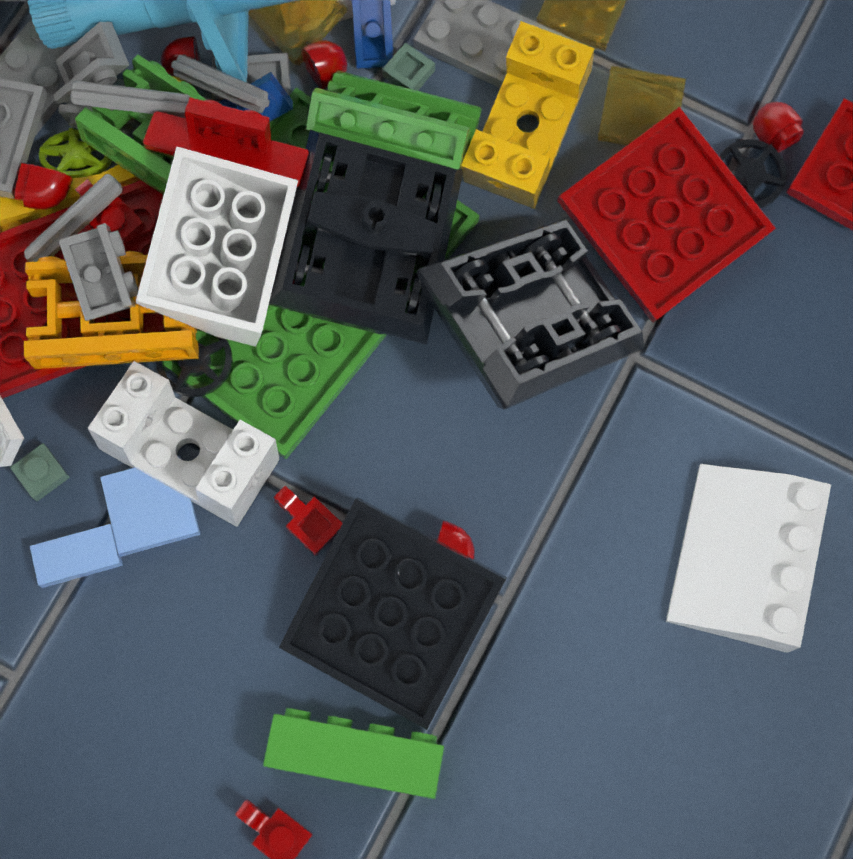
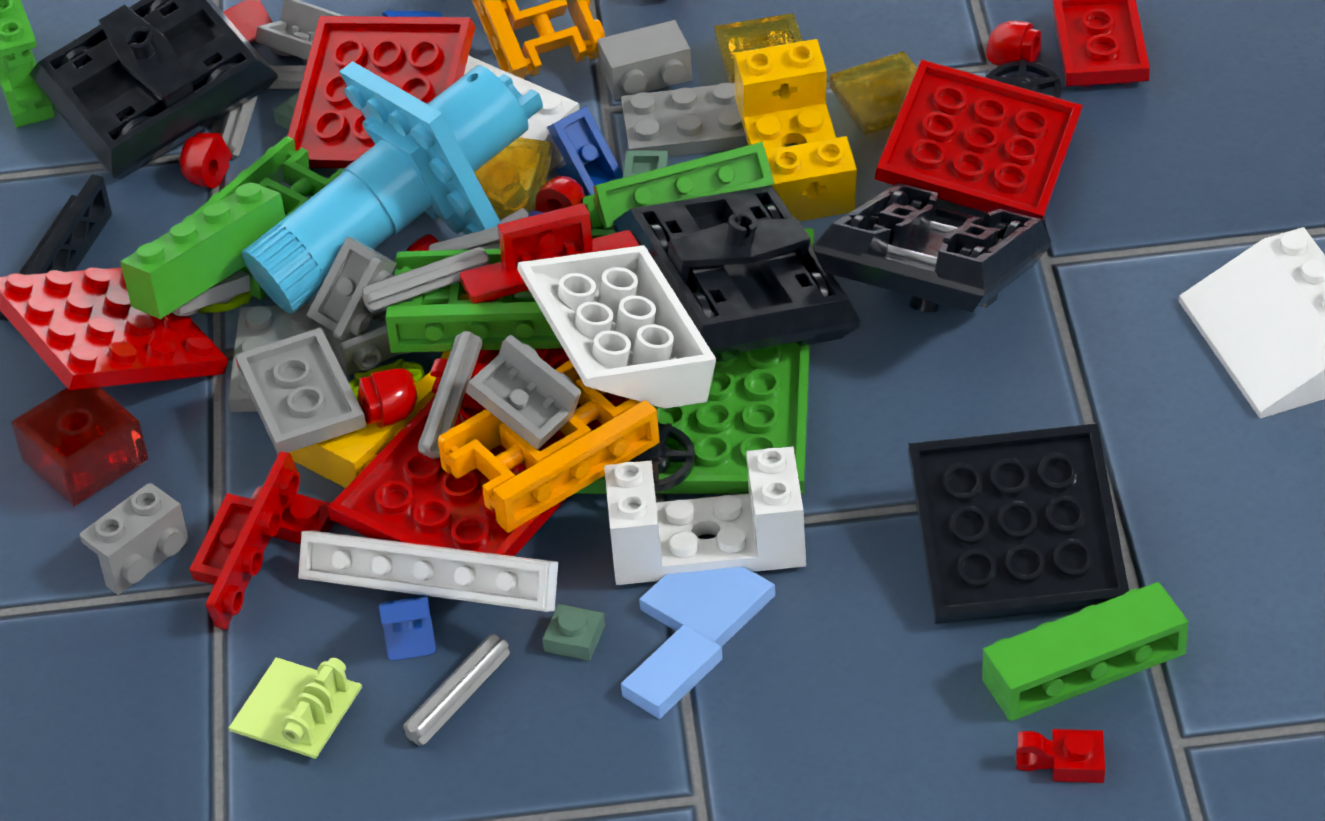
camera: 30 degrees left, 30 degrees down
(311, 522) = (873, 518): red plate -> none

